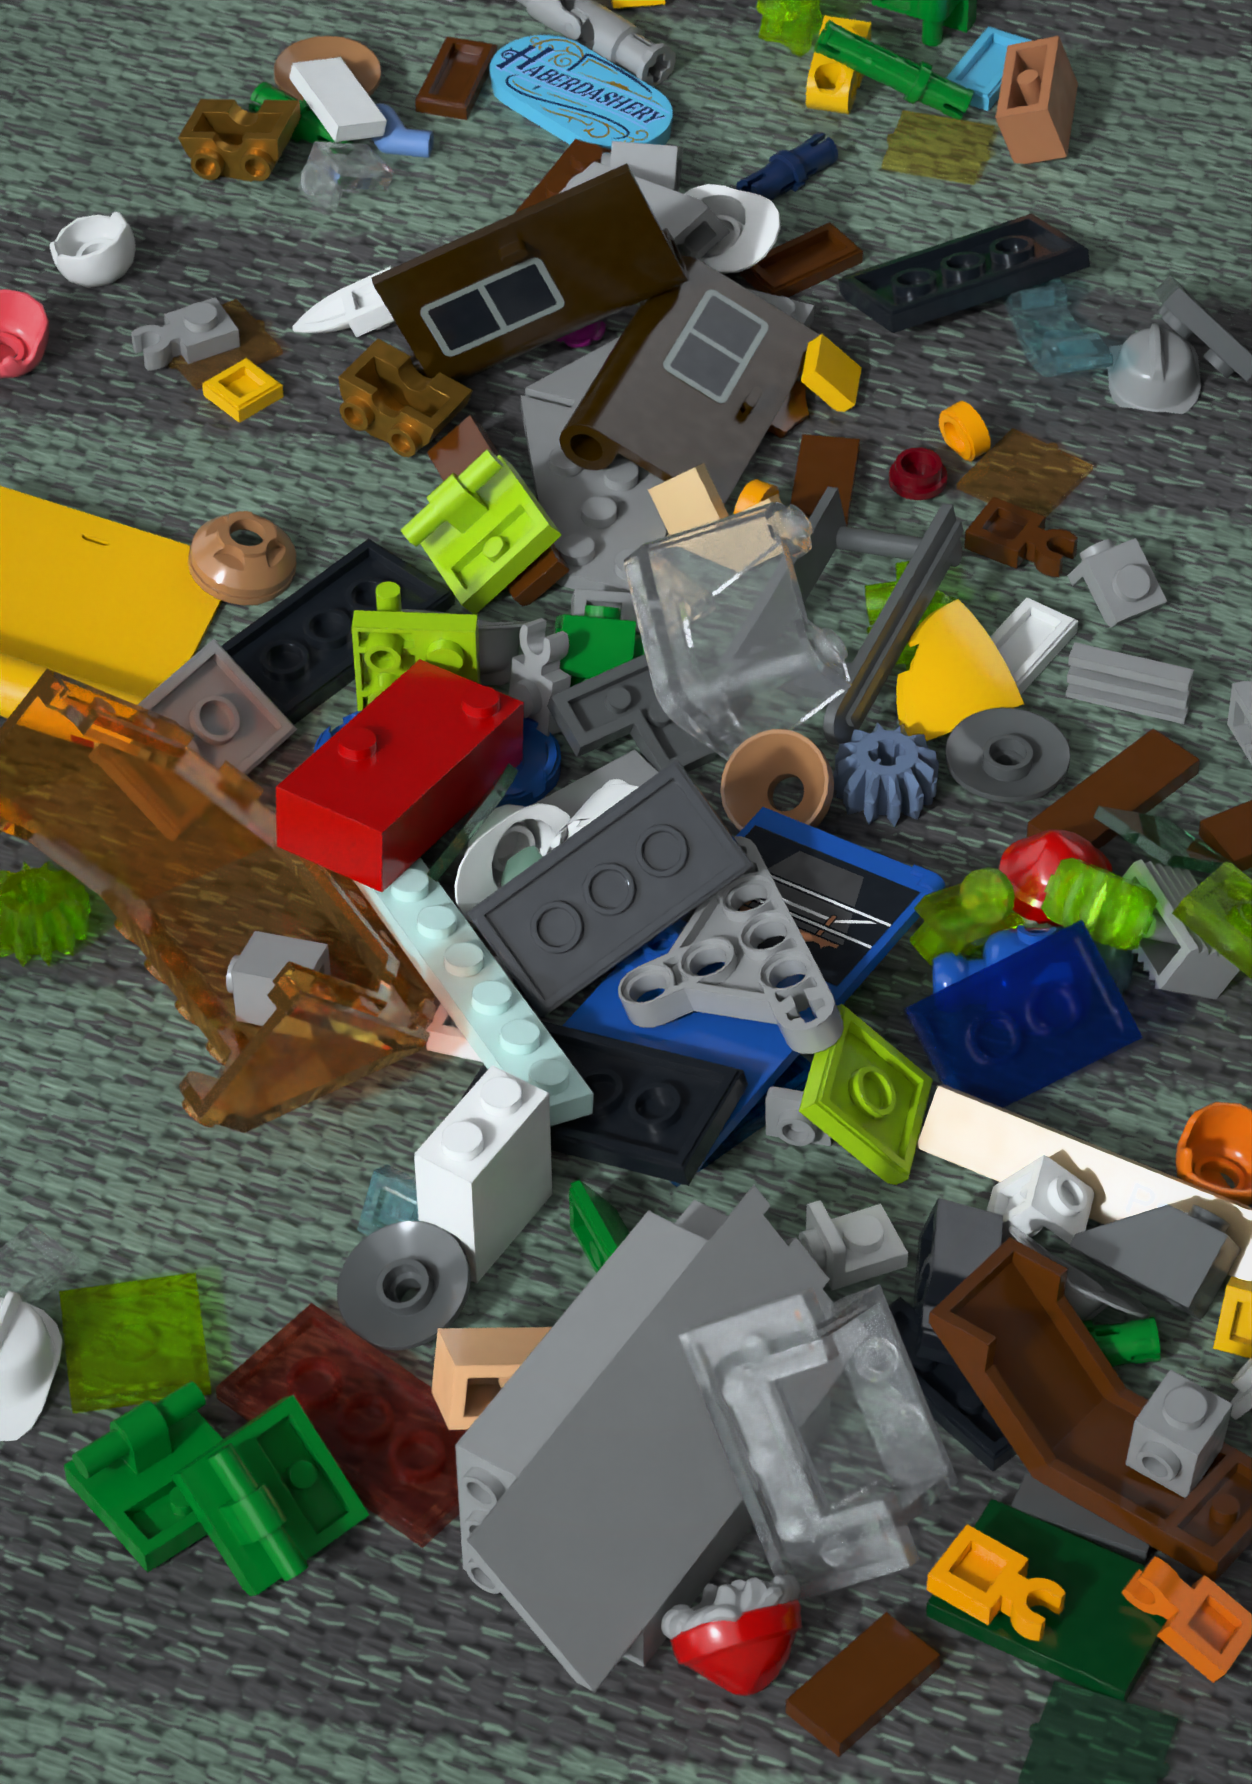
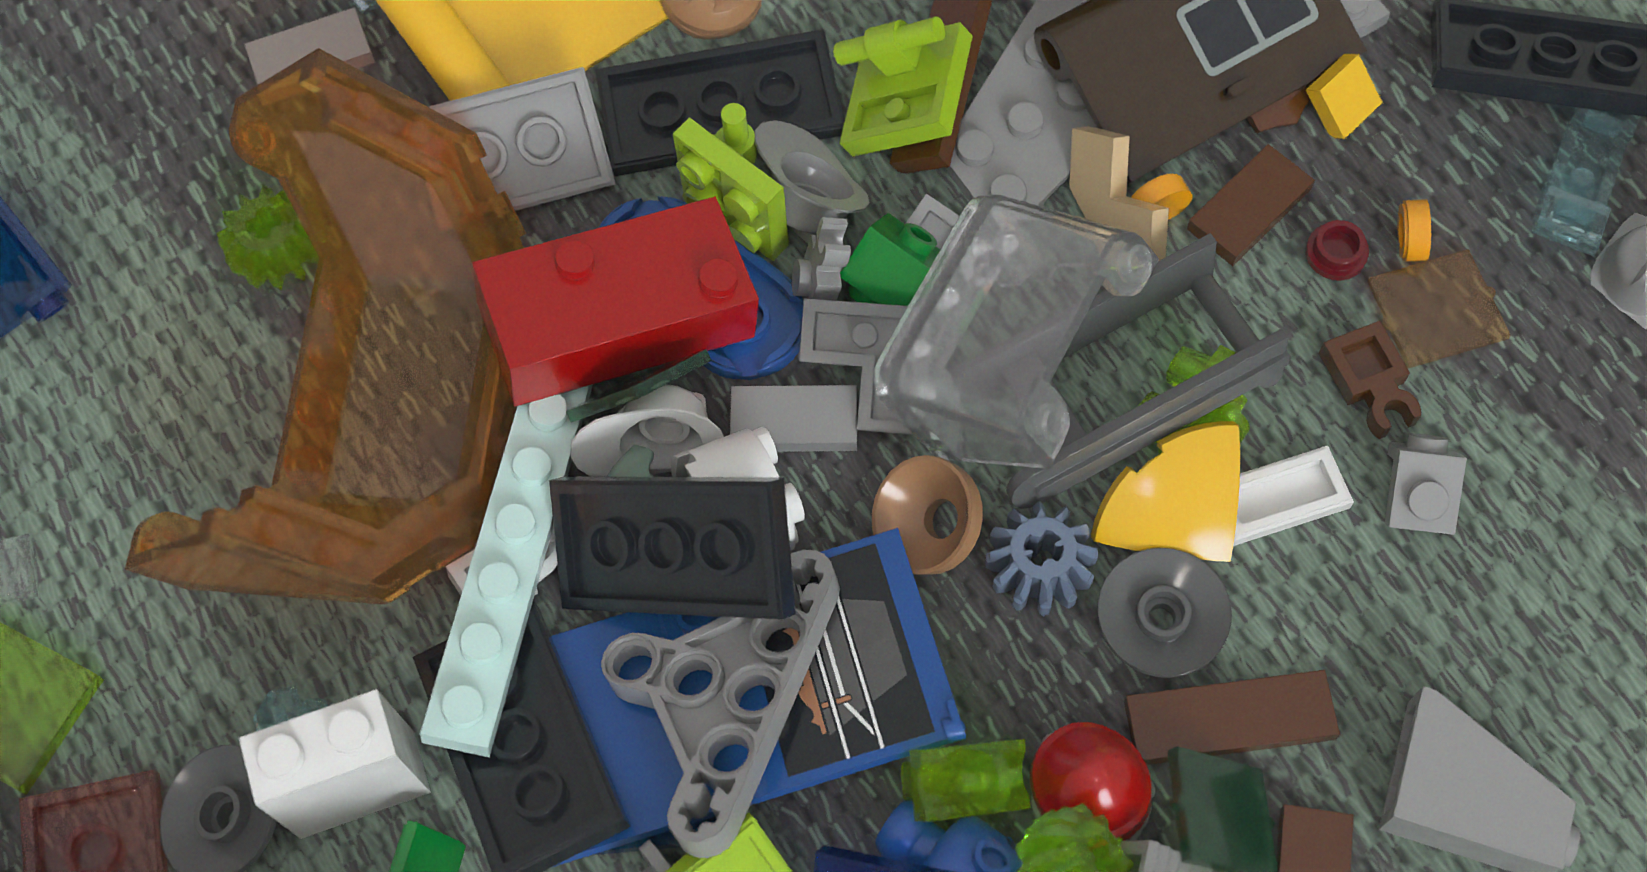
camera: 40 degrees right, 20 degrees up
(262, 959) = (373, 438): light grey brick -> none
(1118, 680) = (1341, 607): light grey tile -> none

